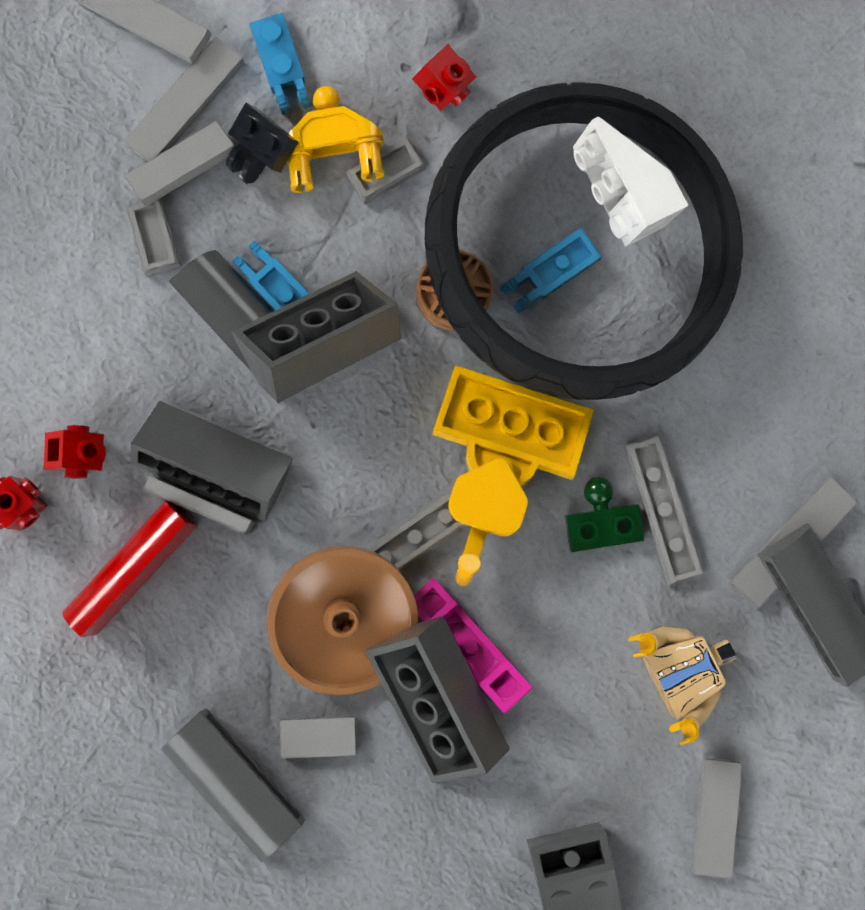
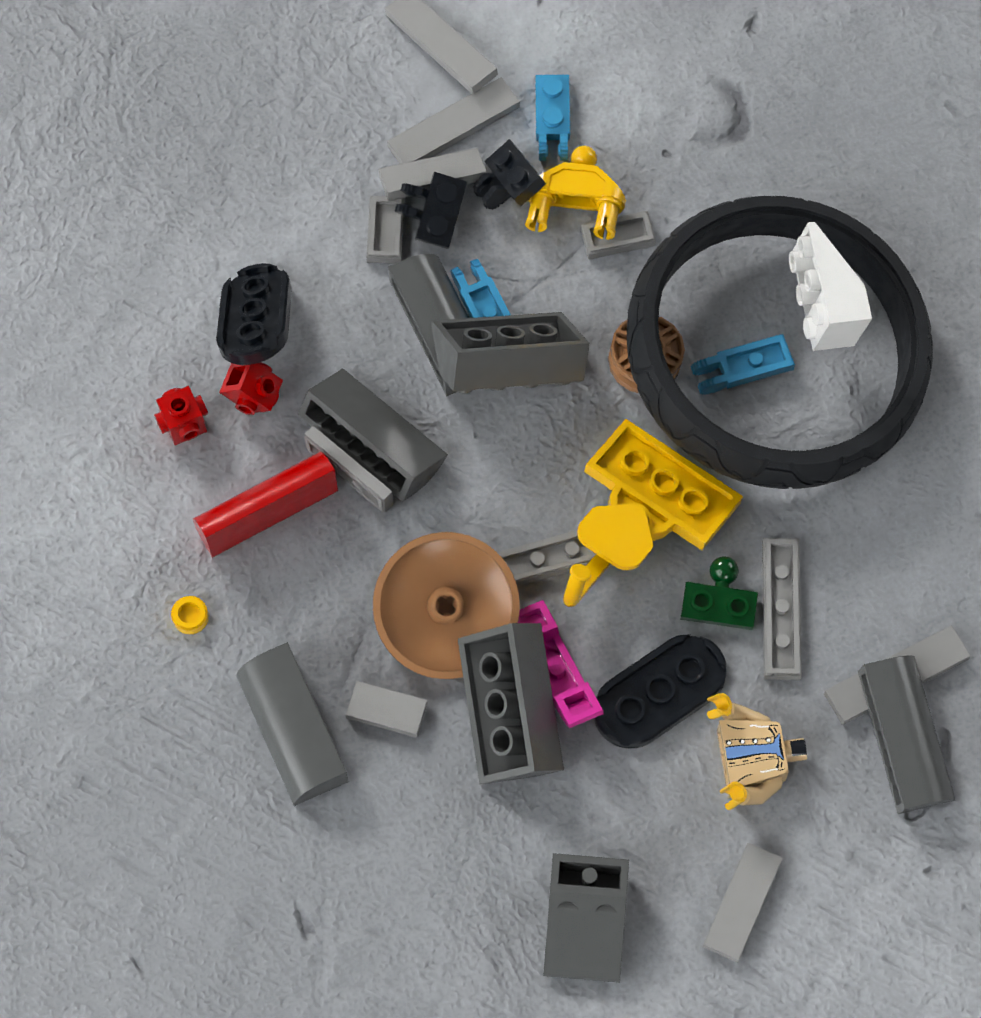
camera: 20 degrees right, 15 degrees down
(50, 376) = (254, 314): none -> black tile
(94, 703) = (189, 615): none -> yellow tile
(200, 201) = (439, 211): none -> black hinge
(445, 78) = (698, 170): red brick -> none
(574, 631) = (660, 690): none -> black tile

